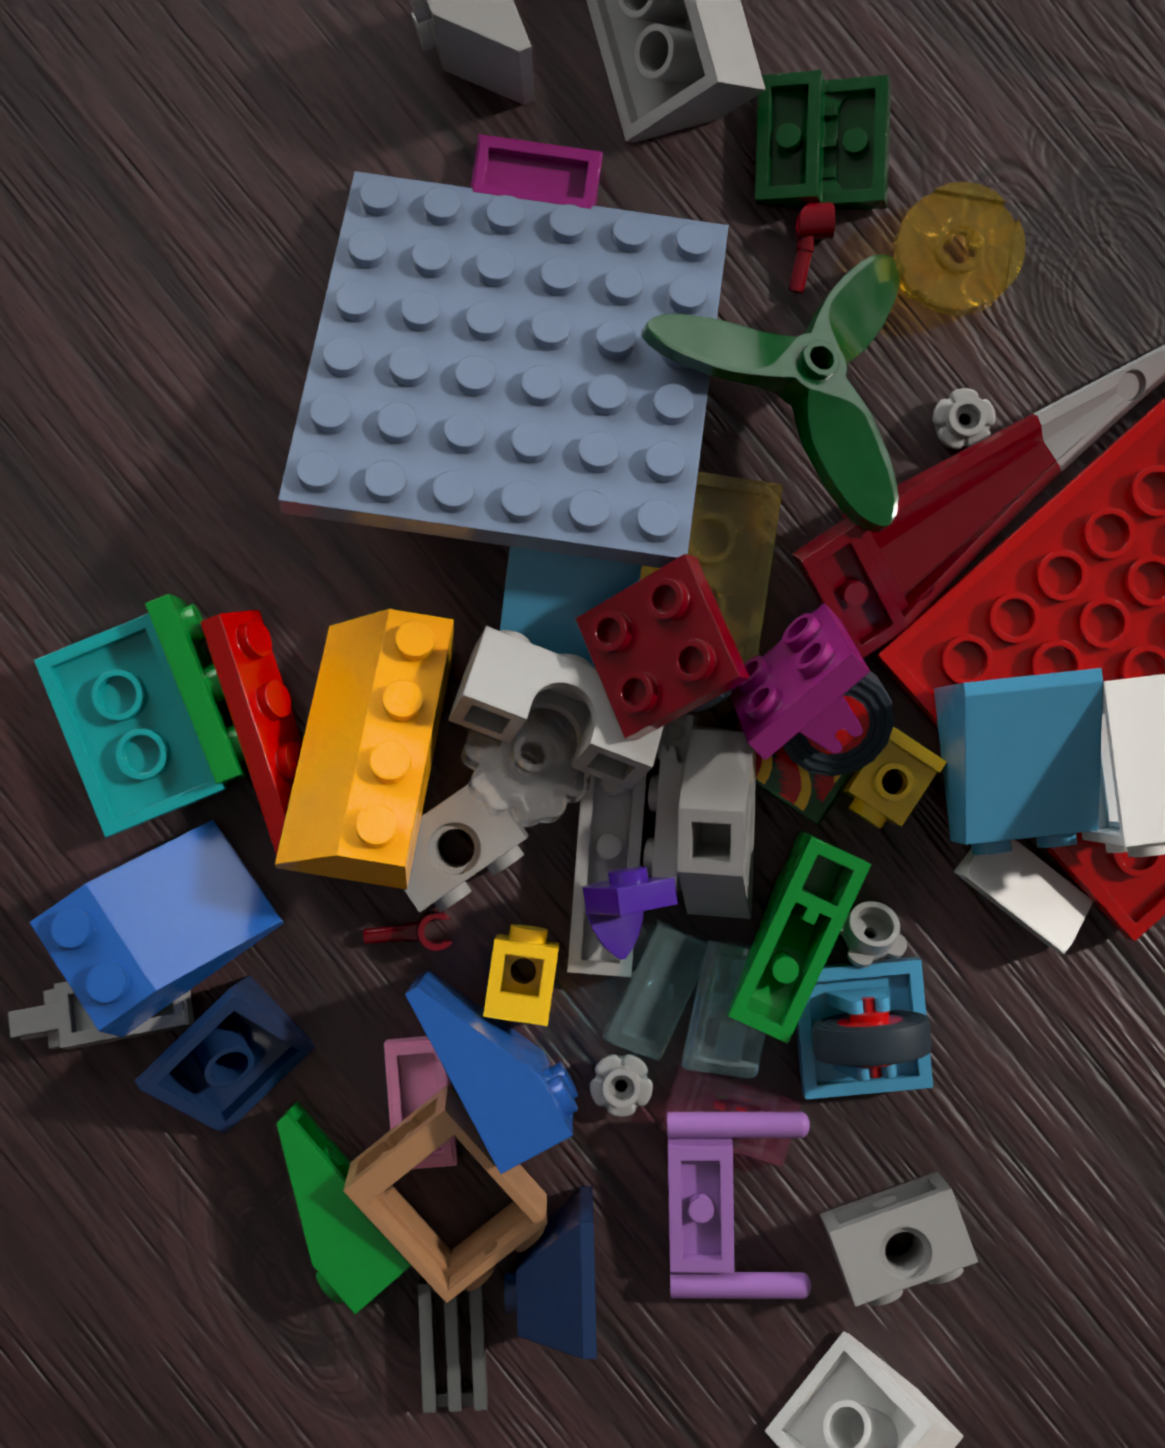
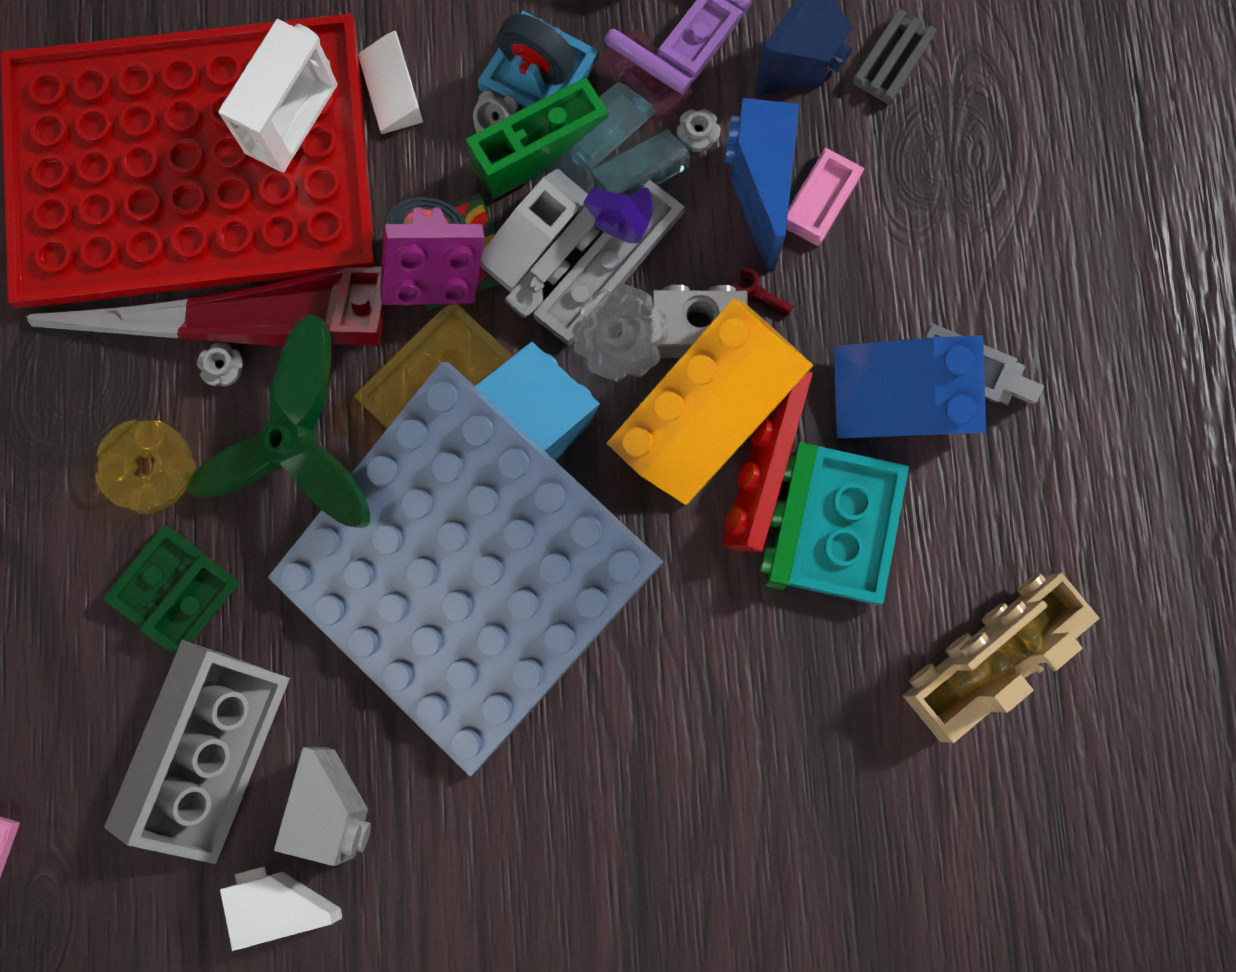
camera: 140 degrees left, 10 degrees down
(228, 1058) = (920, 293): dark blue slope -> none
(343, 1244) = (911, 146): green slope -> none
(404, 1147) = (850, 166): medium nougat window -> none
(514, 676) = (553, 317): light grey arch -> none
(515, 998) = (715, 208): yellow brick -> none
(536, 171) = (359, 695): magenta tile -> none
(662, 648) = (494, 324): dark red plate -> none
(812, 223) = (219, 544): dark red hand -> none
(917, 770) = (404, 181): yellow brick -> none
(1021, 758) = (335, 143): dark azure slope -> none

